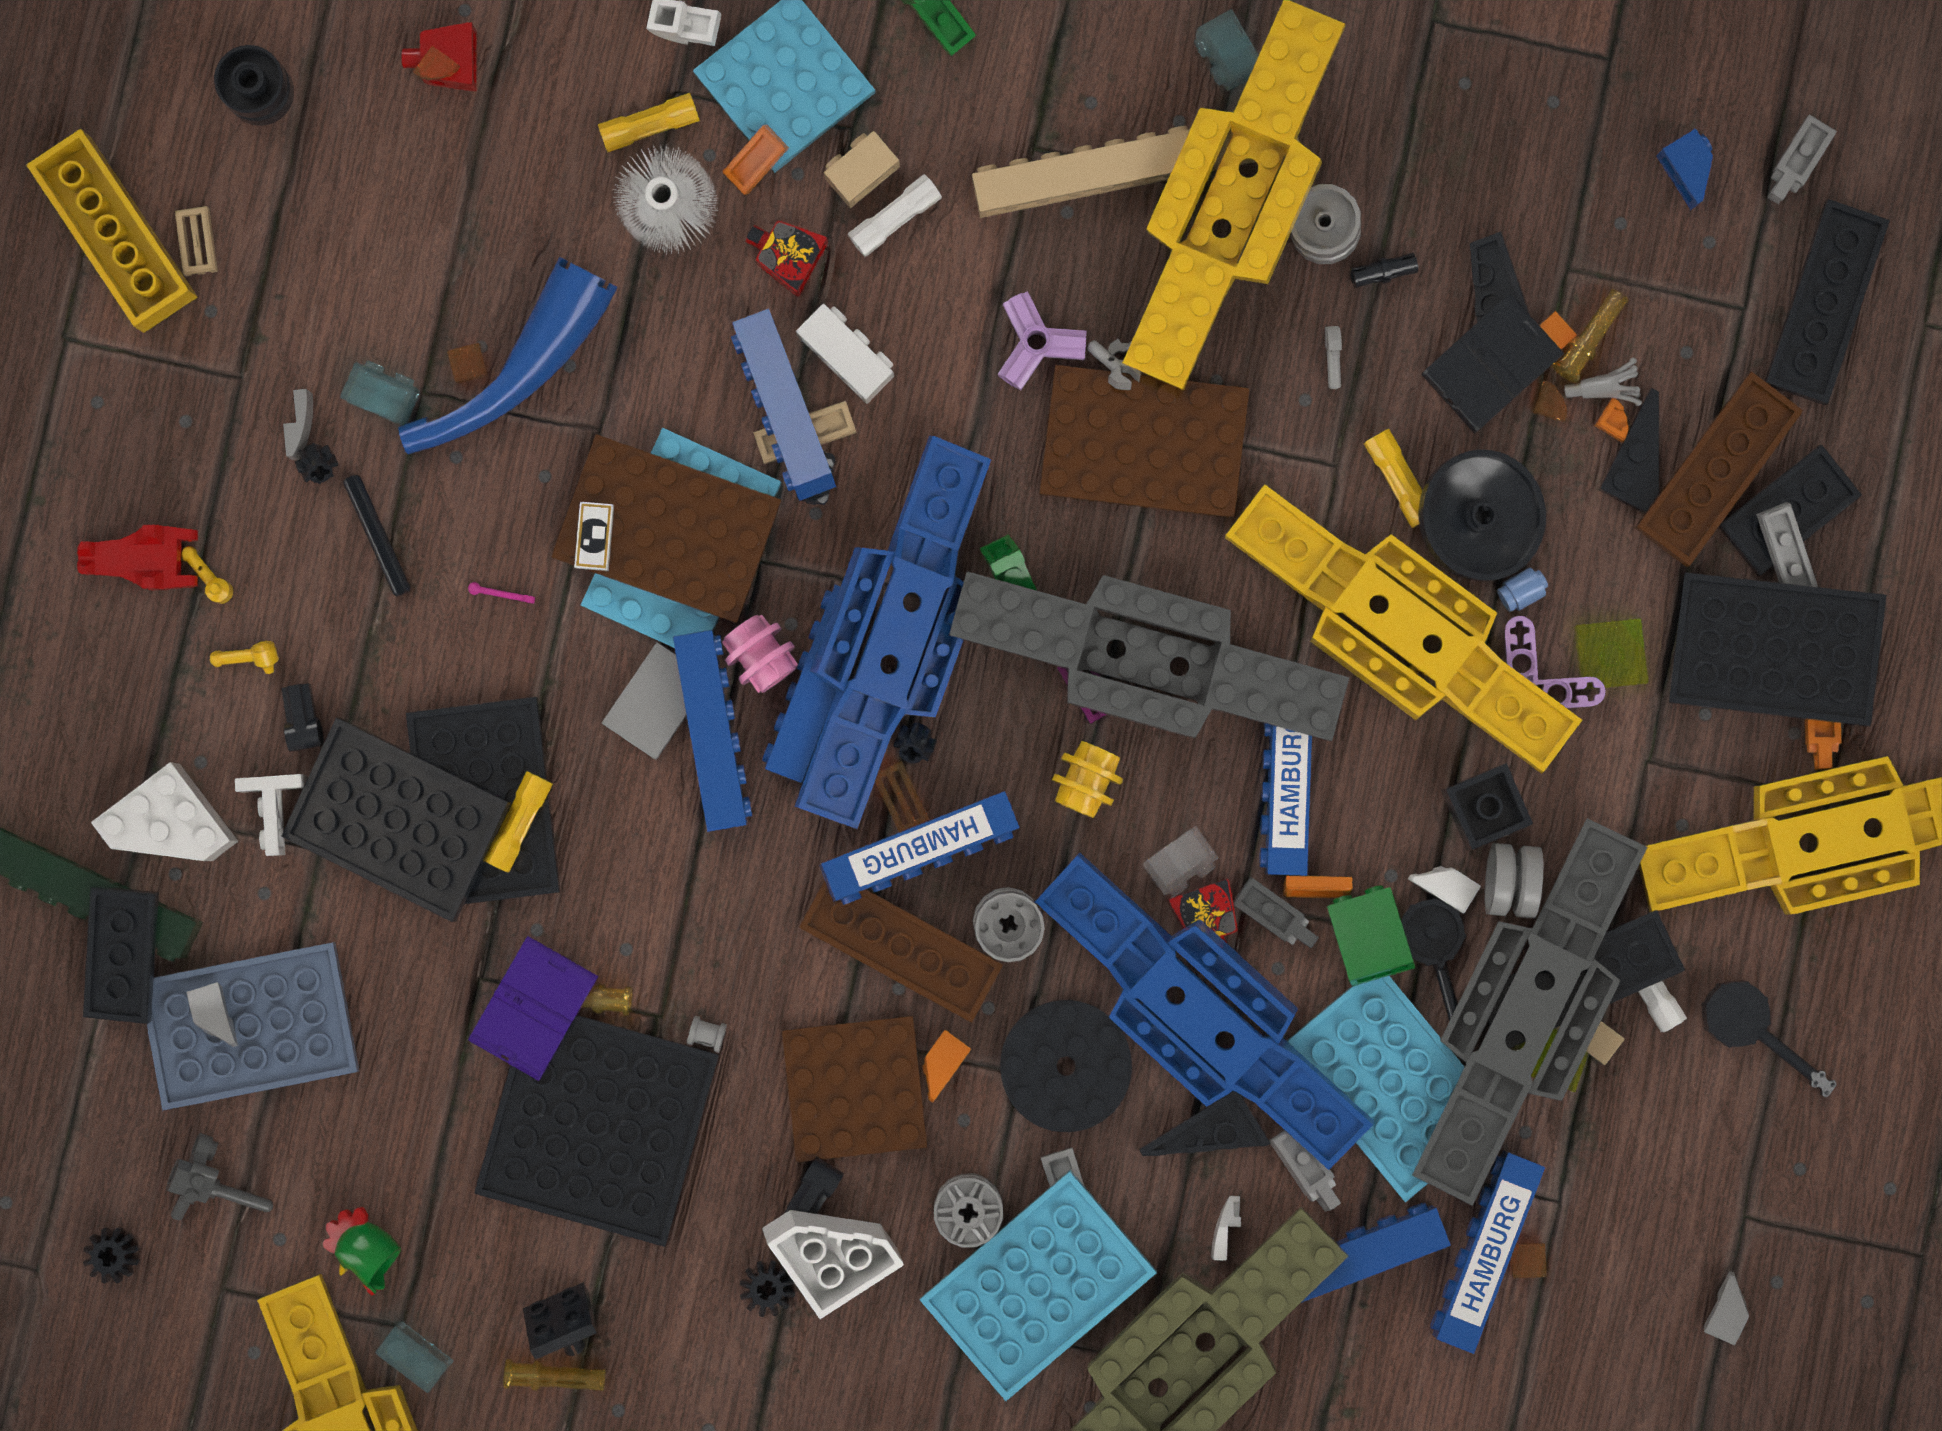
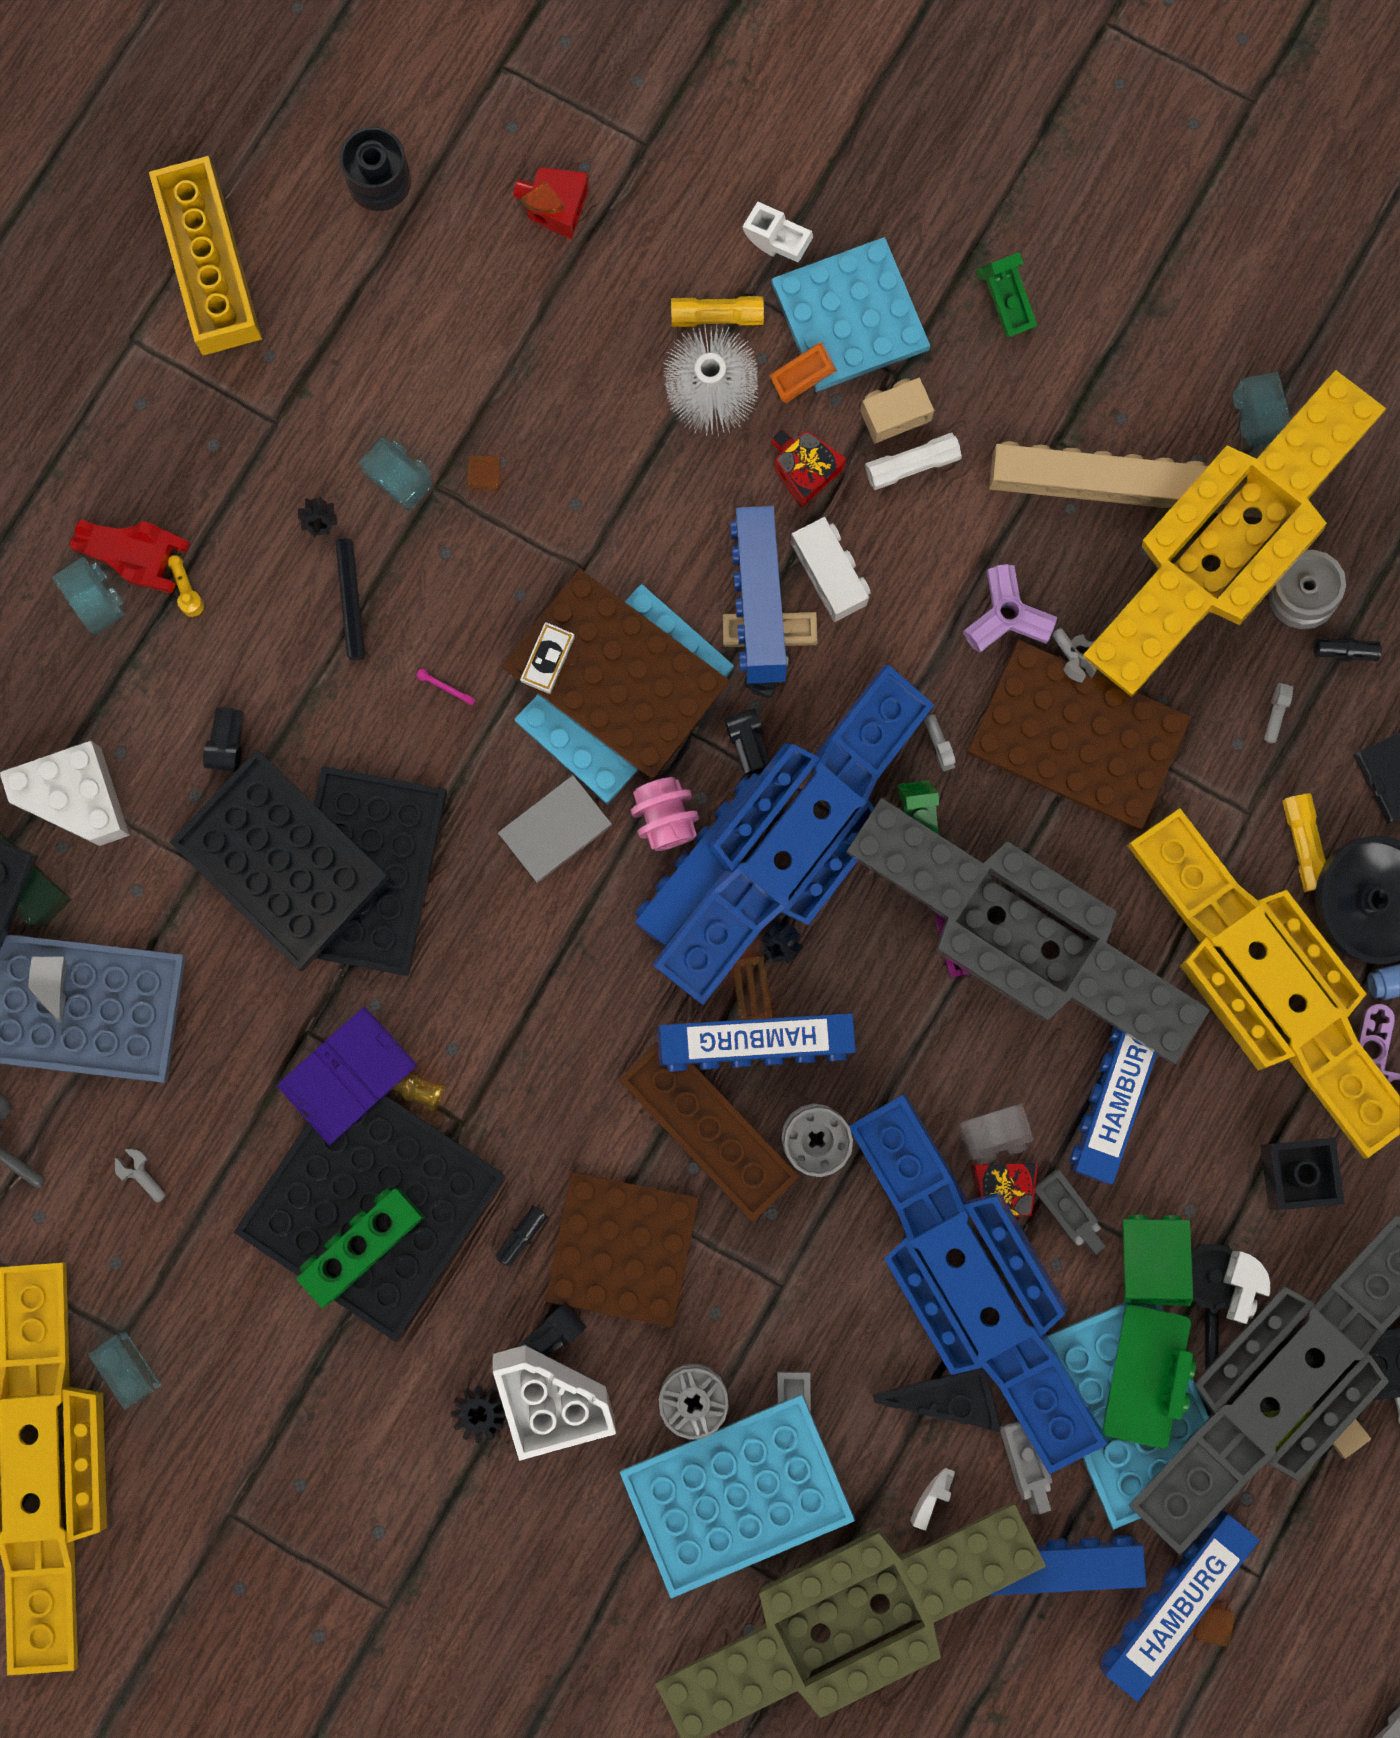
camera: 15 degrees right, 5 degrees down
(115, 615) = (88, 594): none -> clear light blue brick
(200, 268) = (274, 315): tan tile -> none
(262, 654) = (210, 672): yellow piece -> none
(271, 806) = (169, 812): white bracket -> none
(297, 433) = (310, 484): light grey slope -> none
(361, 1248) = (111, 1250): green piece -> none
(363, 1167) = (139, 1174): none -> light grey bar
(517, 822) = (394, 893): yellow axle -> none
(537, 1375) = (236, 1427): clear yellow pin -> none
(555, 329) = (572, 465): blue brick -> none
(560, 1322) = (272, 1382): black plate -> none
(582, 1217) = (326, 1288): none -> green brick
(706, 1033) = (500, 1152): light grey bush -> none
(711, 730) = (596, 870): blue brick -> none
(753, 1107) = (521, 1236): none -> black axle
(815, 548) = (746, 734): none -> black piece
(943, 1062) = (713, 1251): orange slope -> none
(1012, 497) = (944, 751): none -> light grey bar
(1061, 1100) = (836, 1326): black plate -> none
(1087, 779) = (933, 1027): yellow piece -> none
(1317, 886) = (1118, 1198): orange tile -> none
(1395, 1047) = (1149, 1377): none -> green bracket
(1448, 886) = (1240, 1235): white slope -> none
(1463, 923) = (1249, 1279): none -> white brick
(1513, 880) = (1309, 1252): light grey wheel -> none

